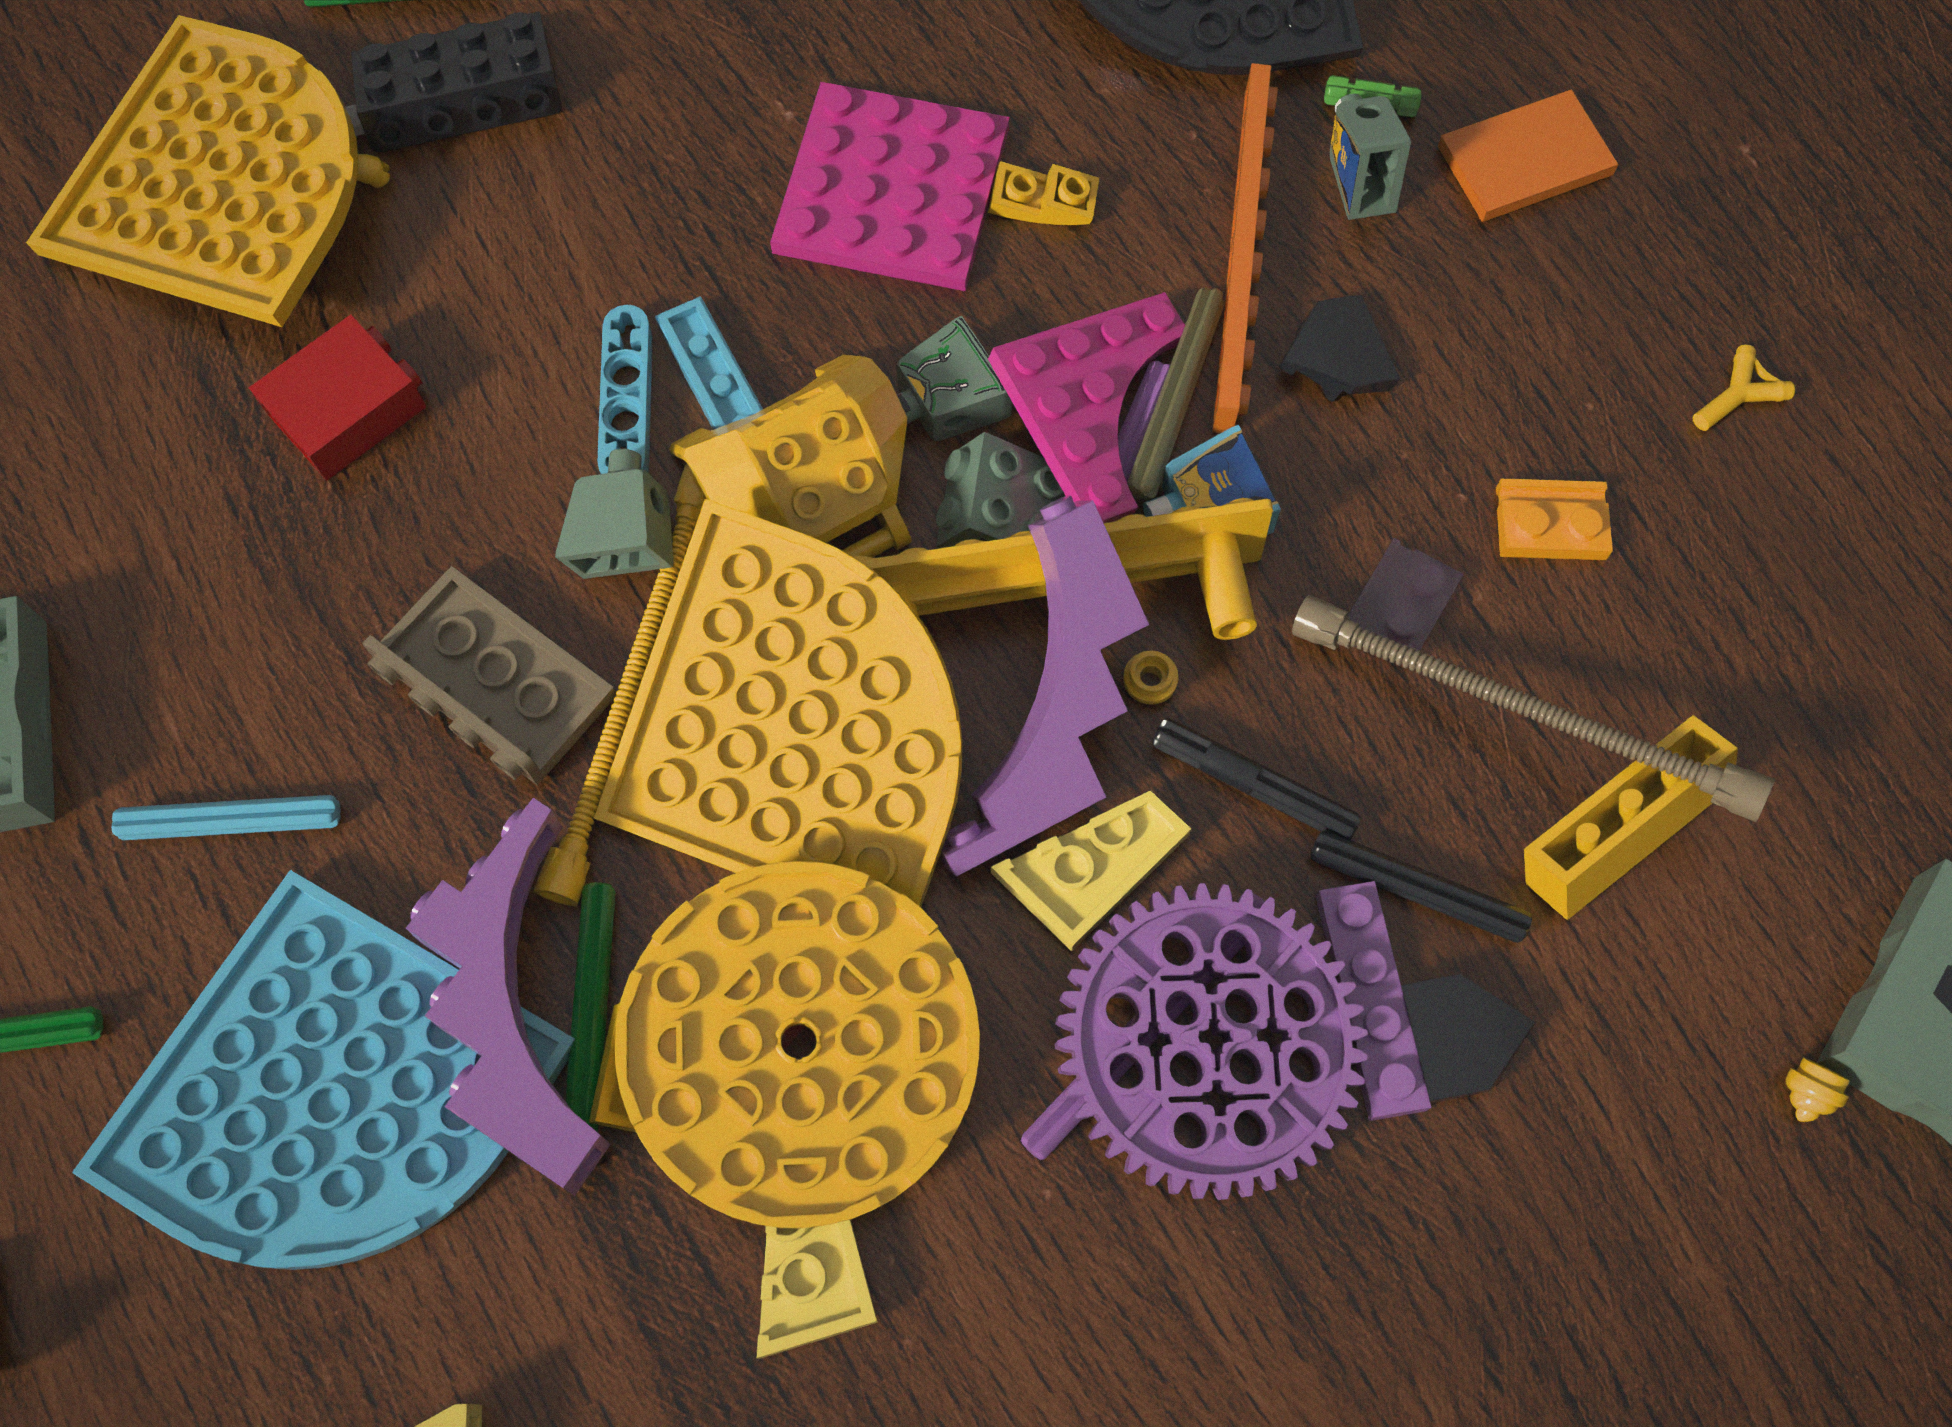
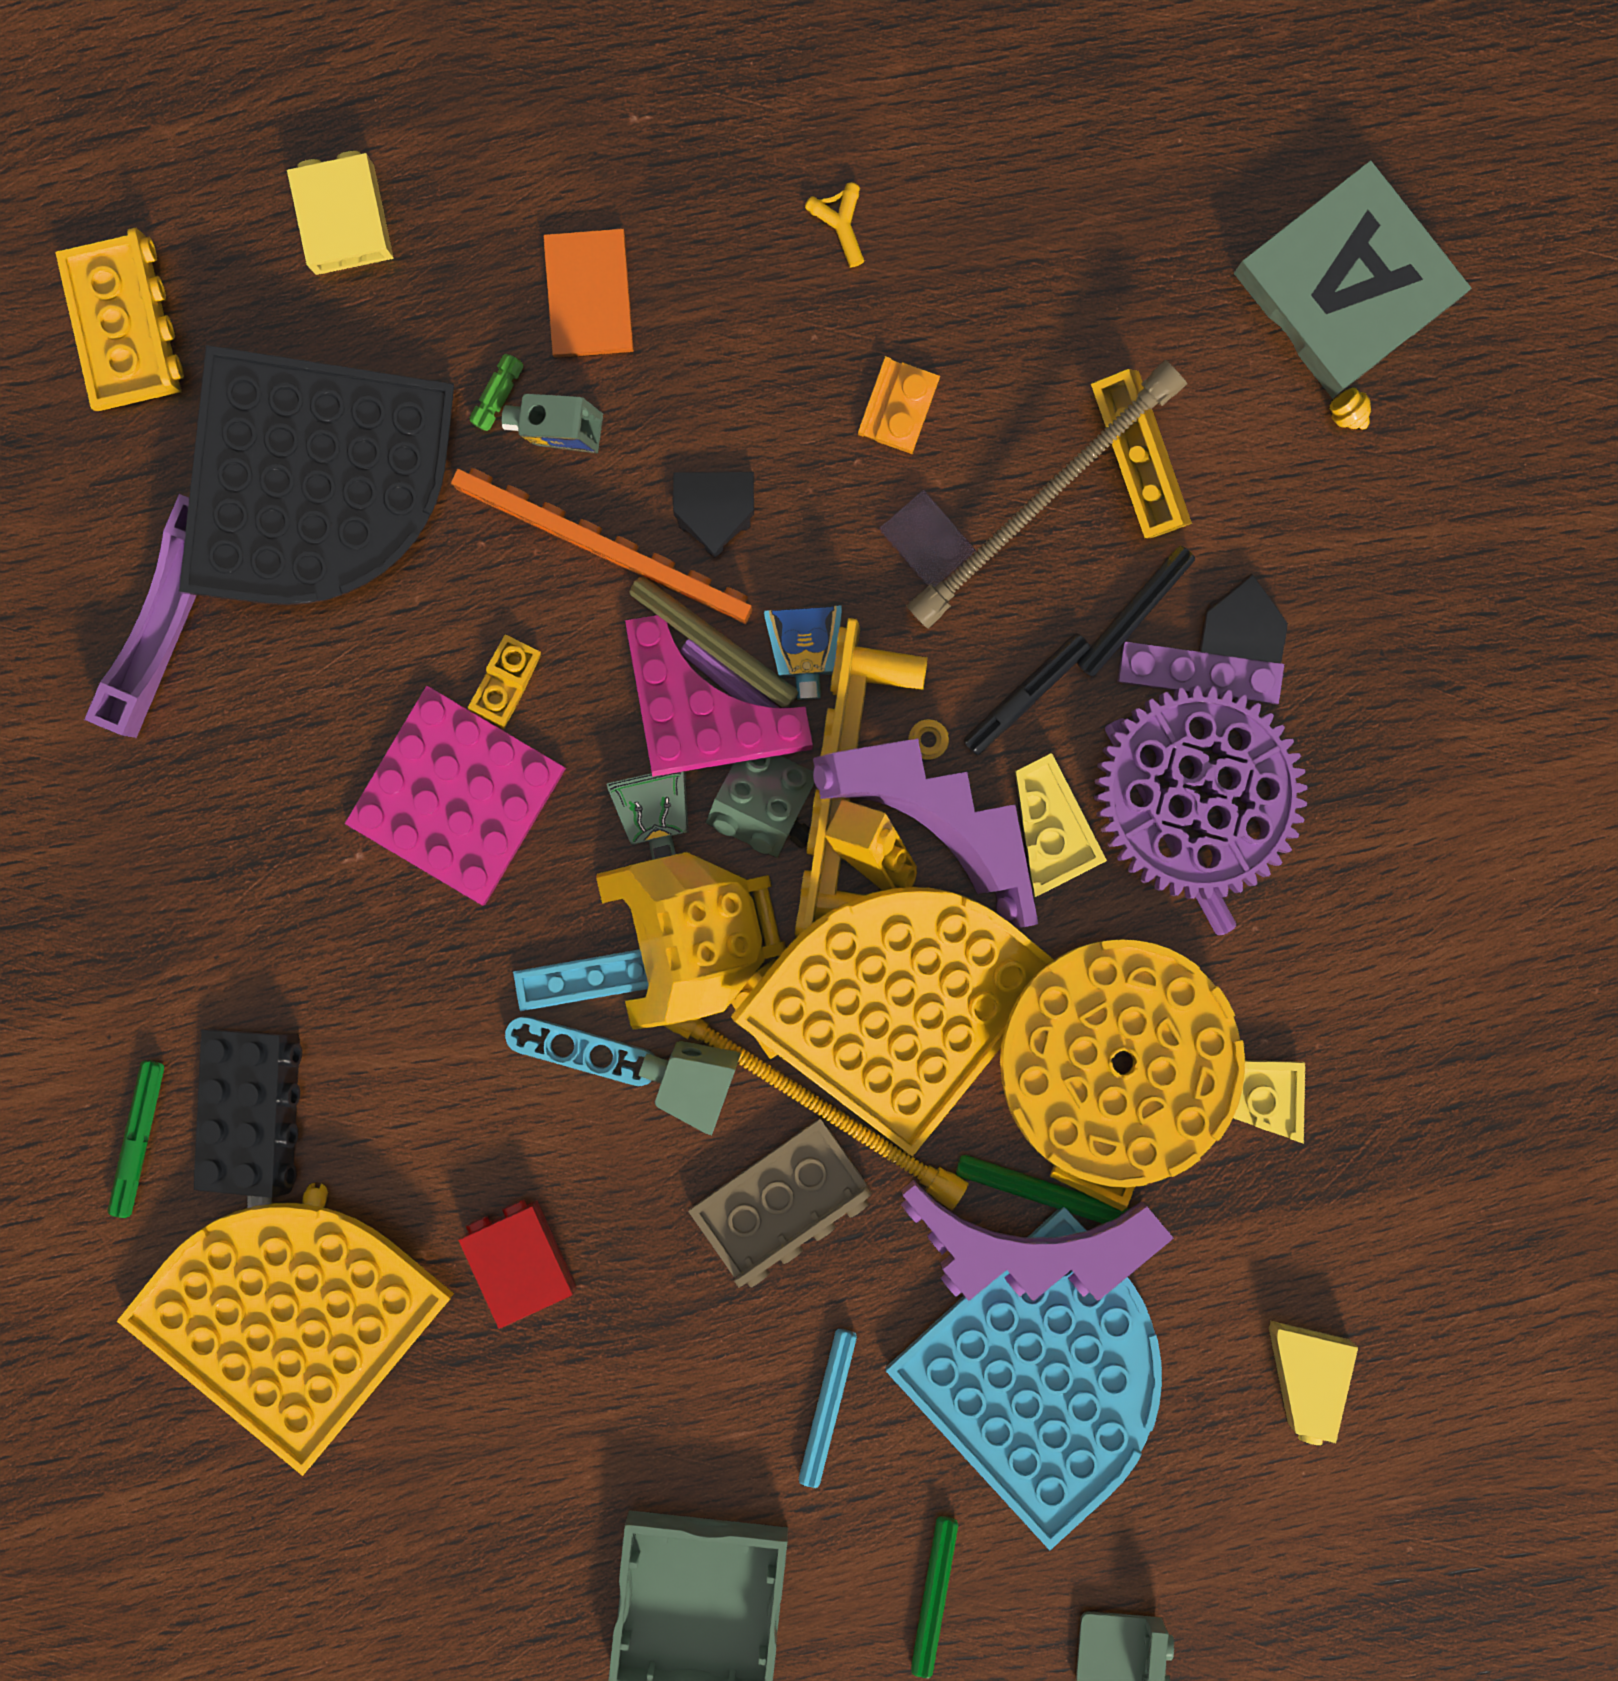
camera: 65 degrees left, 20 degrees up
(989, 622) = (871, 846): none -> yellow slope

